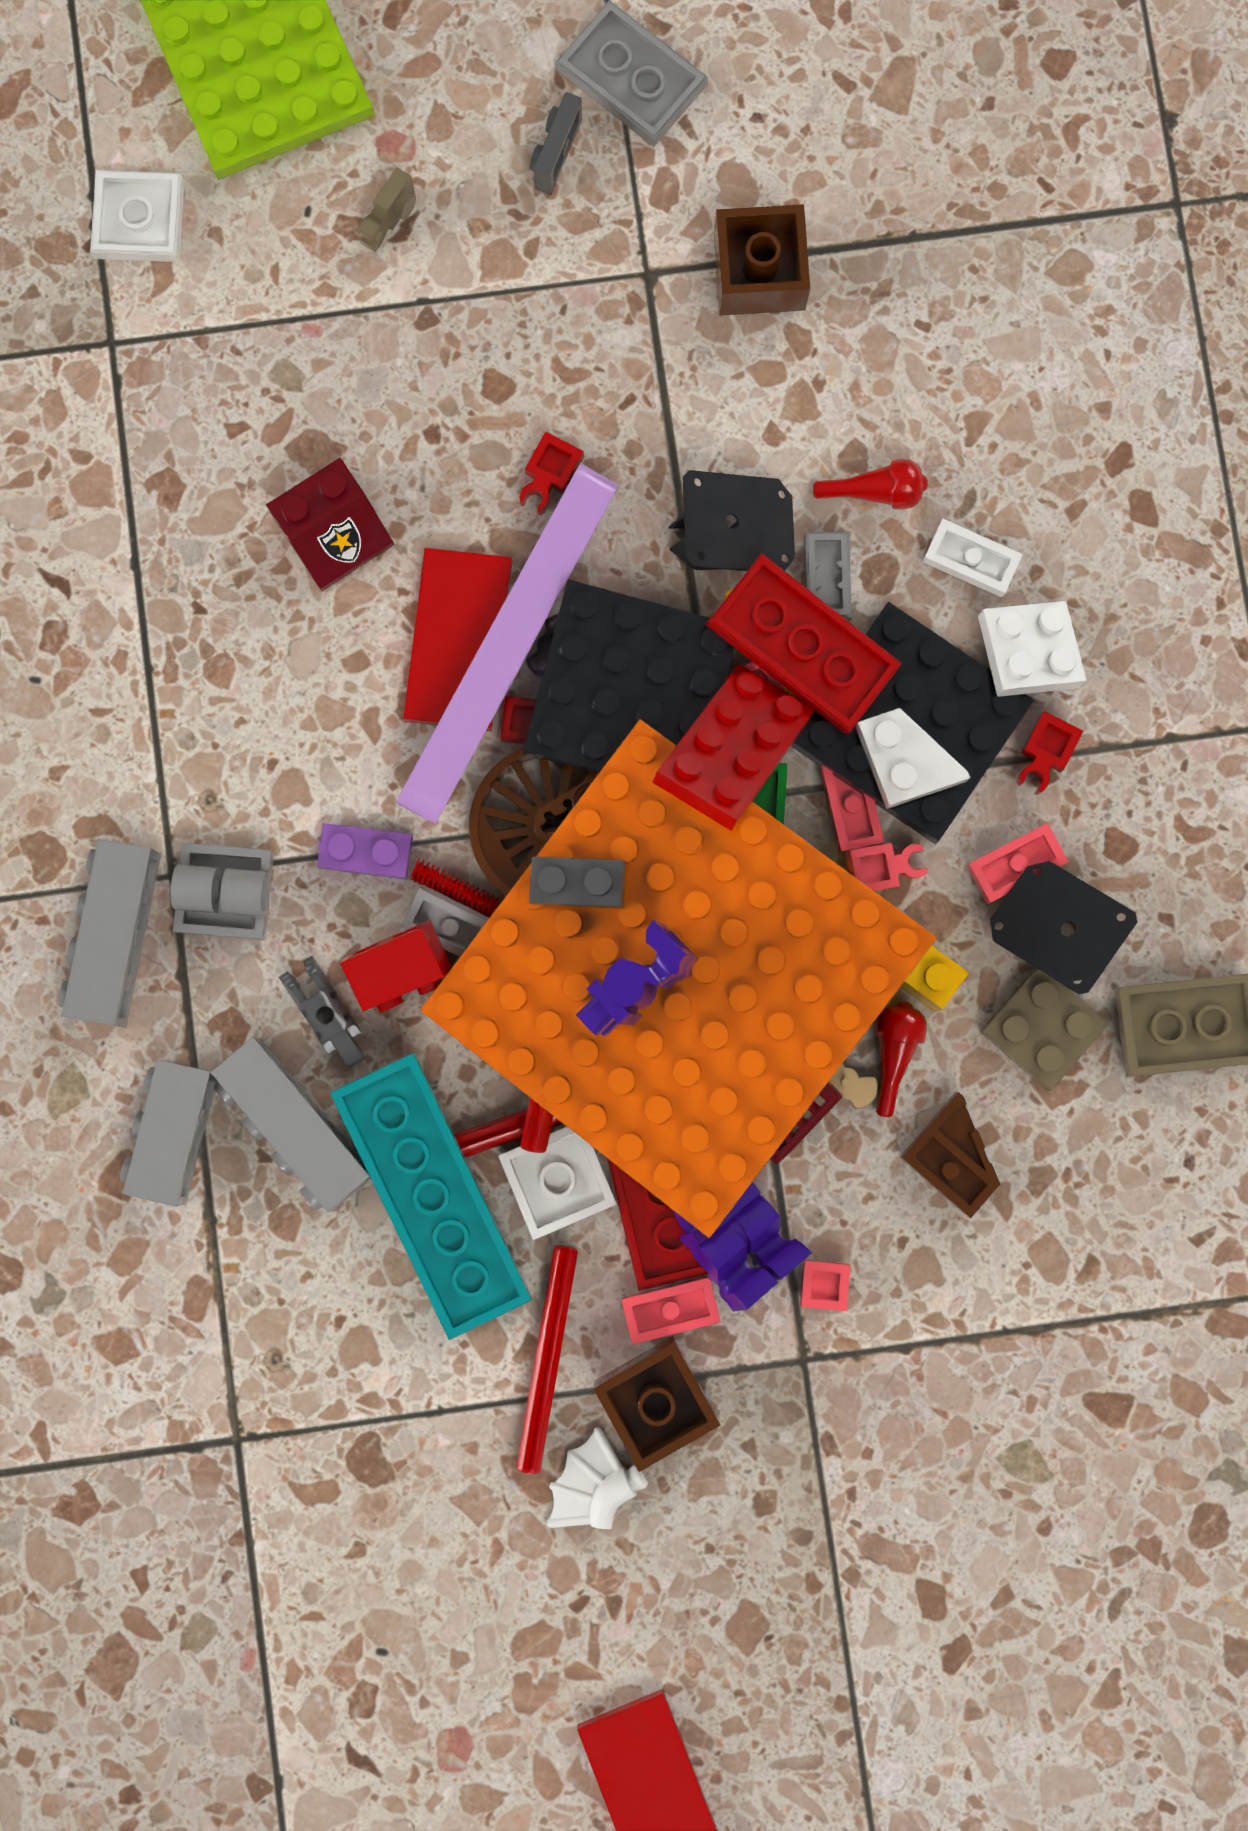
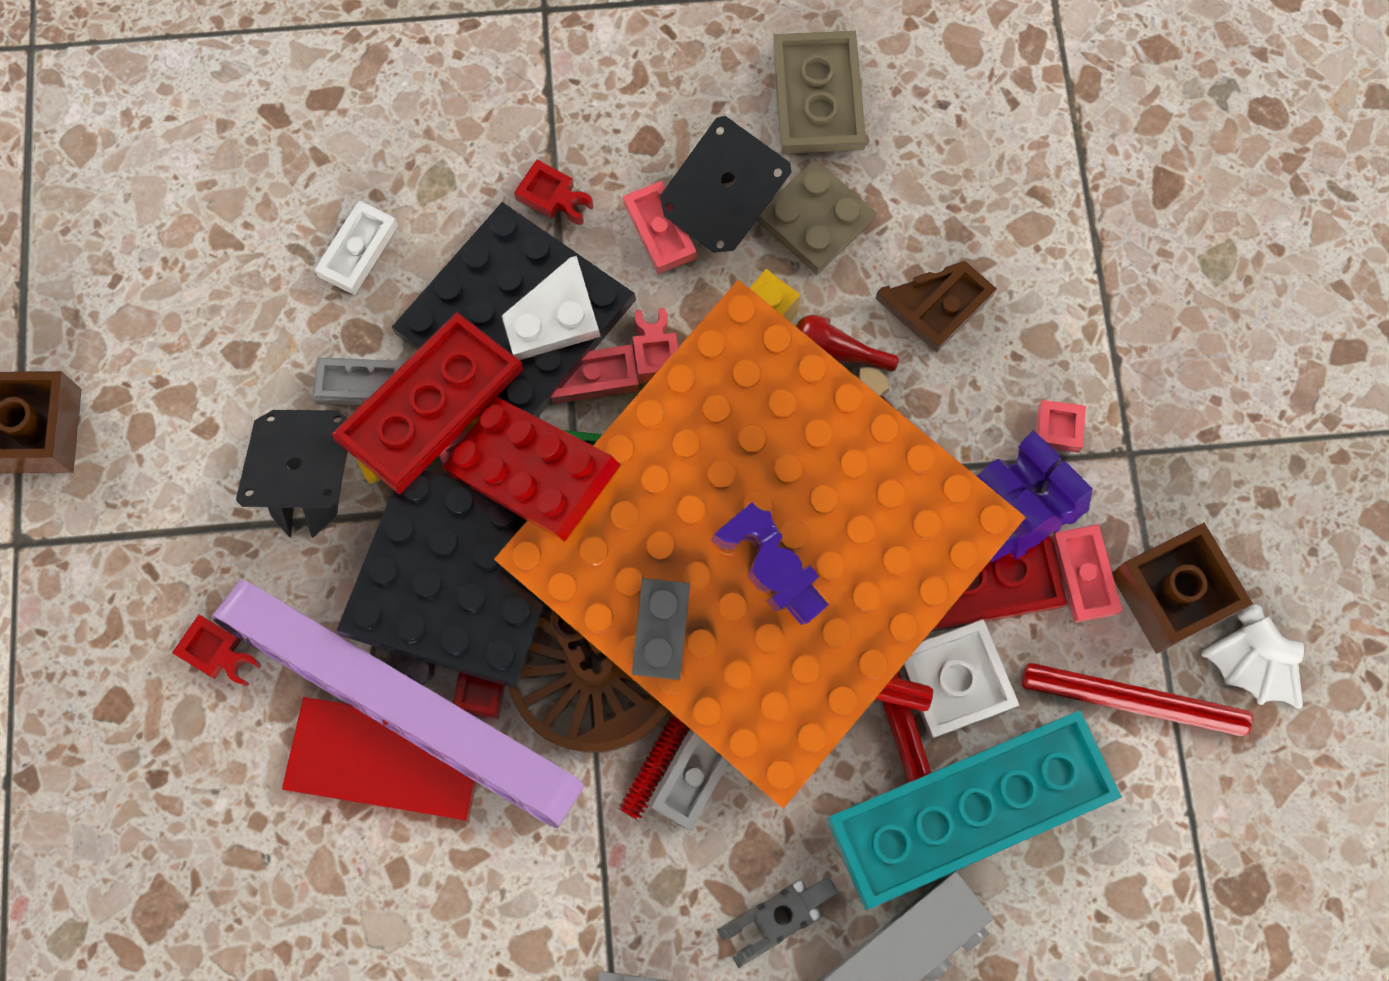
camera: 85 degrees left, 10 degrees down
(330, 524) = (243, 892): dark red slope -> none
(365, 851) = (606, 869): medium lavender plate -> none
(396, 967) = (734, 834): red brick -> none
(895, 485) = (274, 312): red piece -> none
(1031, 648) = (452, 199): white plate -> none

